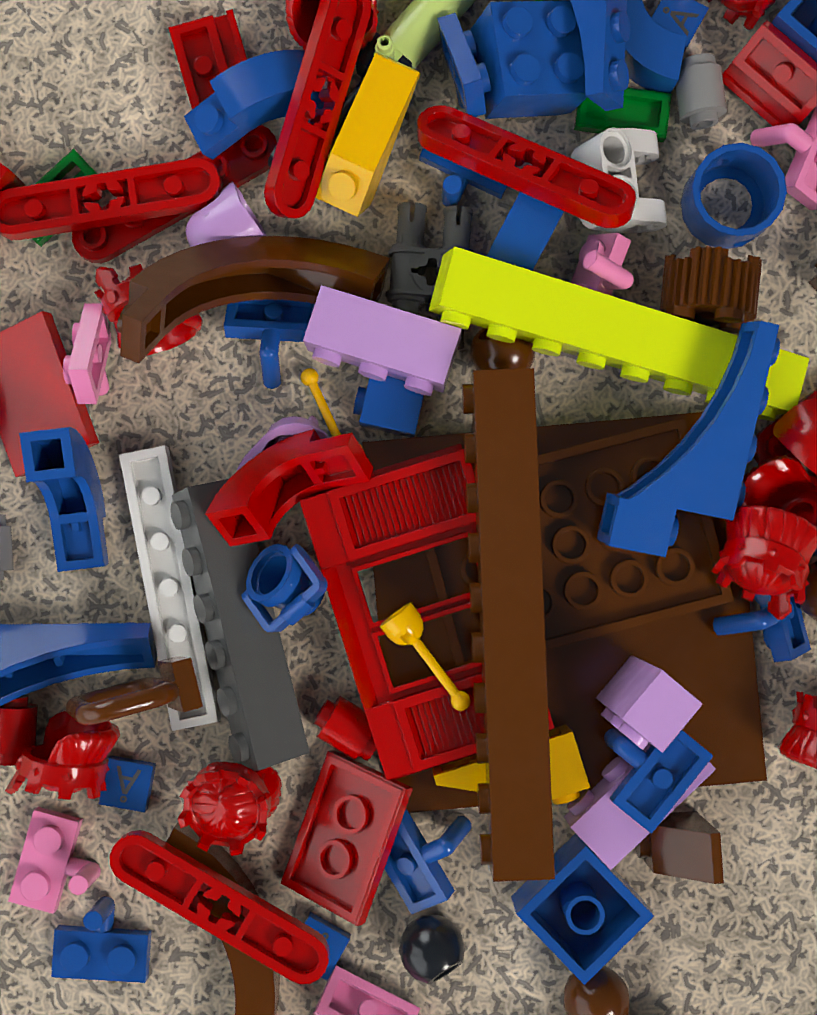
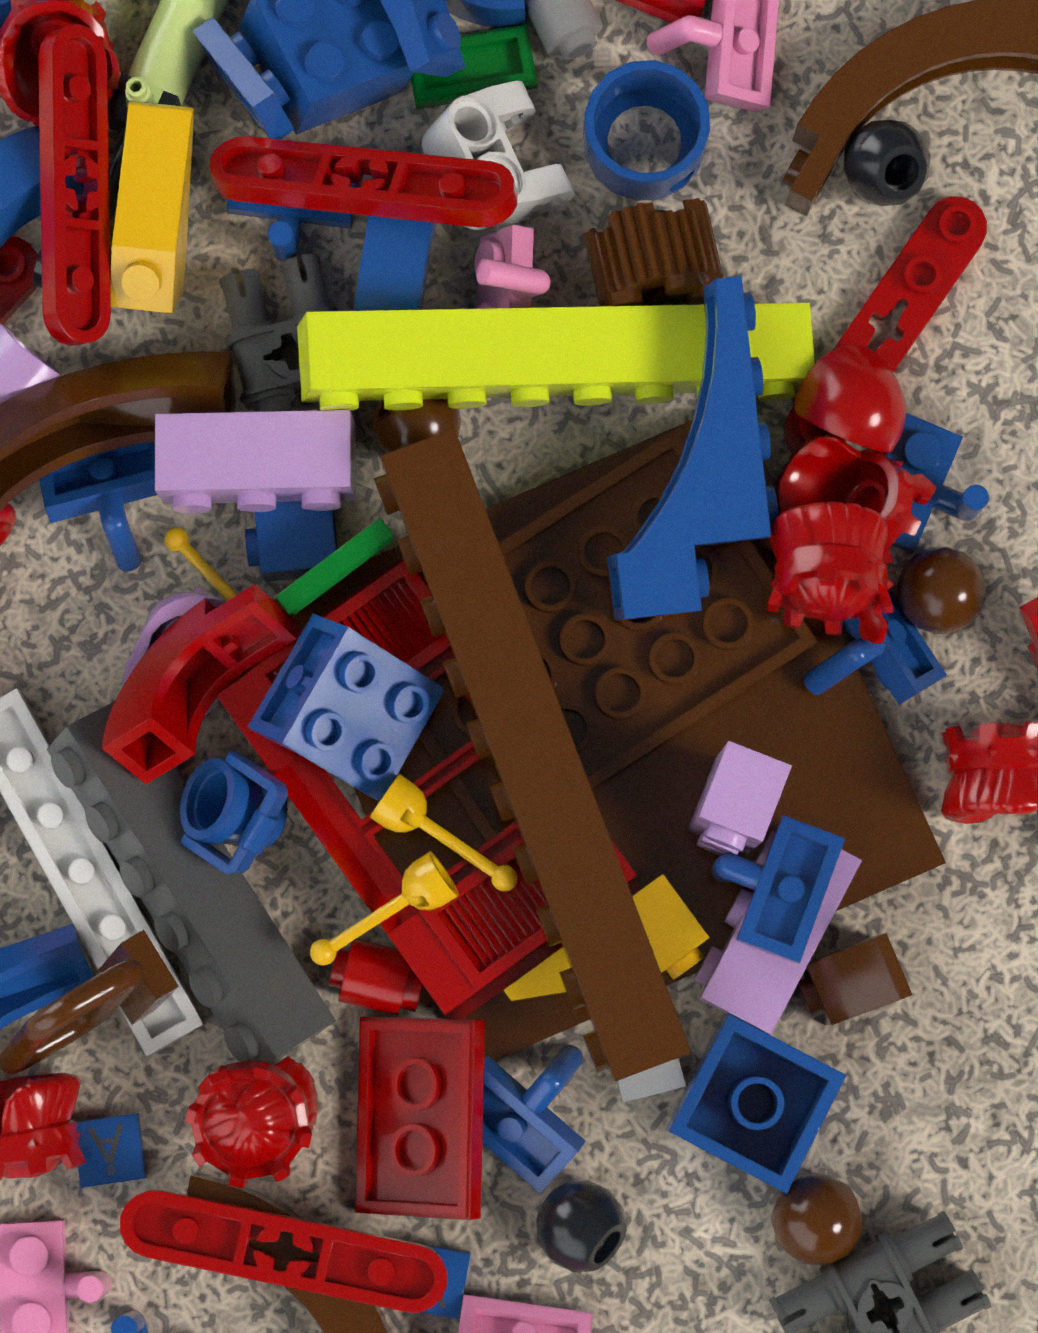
camera: 15 degrees left, 5 degrees down
(388, 541) = (347, 706): none -> blue bracket
(402, 689) = (423, 886): none -> yellow hinge
(413, 437) = (335, 567): none -> green tile

